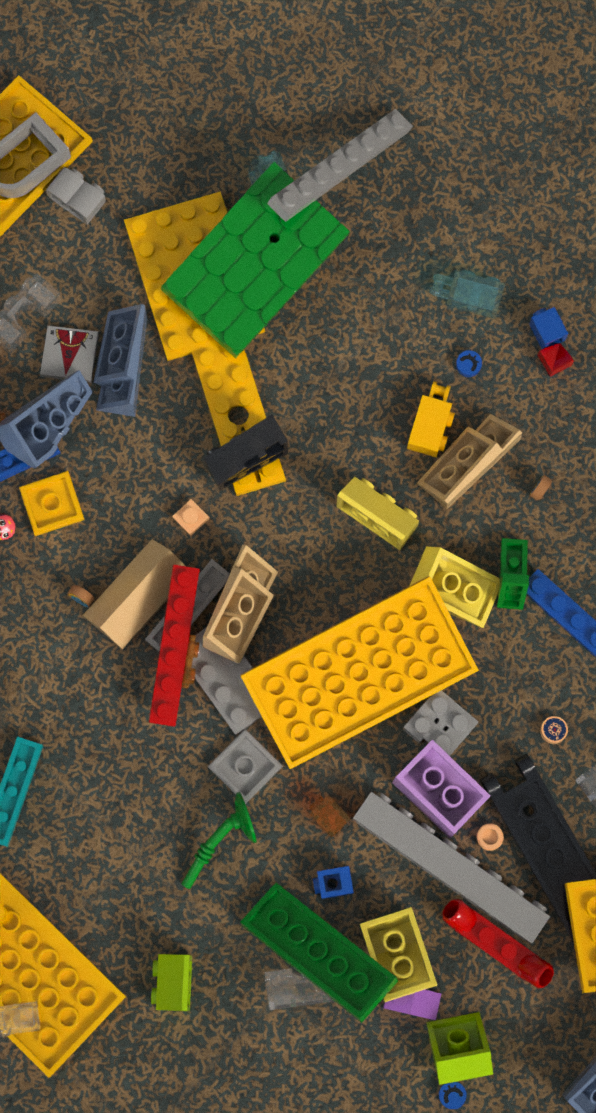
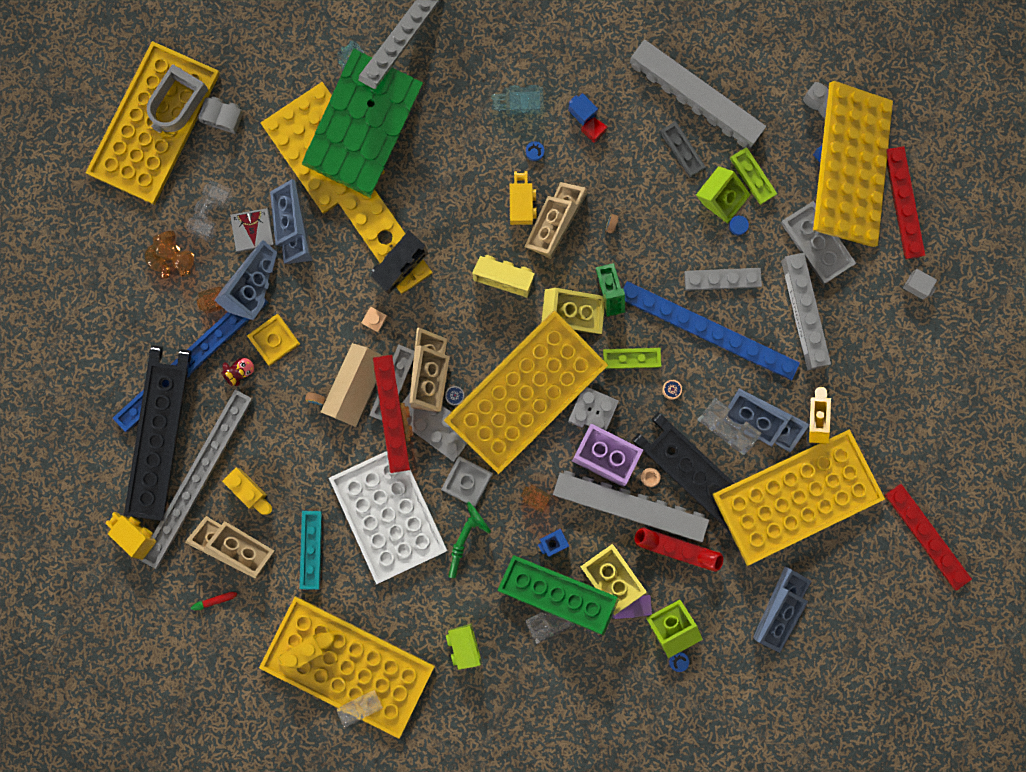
camera: 15 degrees left, 5 degrees up
(126, 780) = (387, 517): none -> white plate
(264, 648) = (454, 395): none -> tile
(514, 672) = (632, 358): none -> lime plate

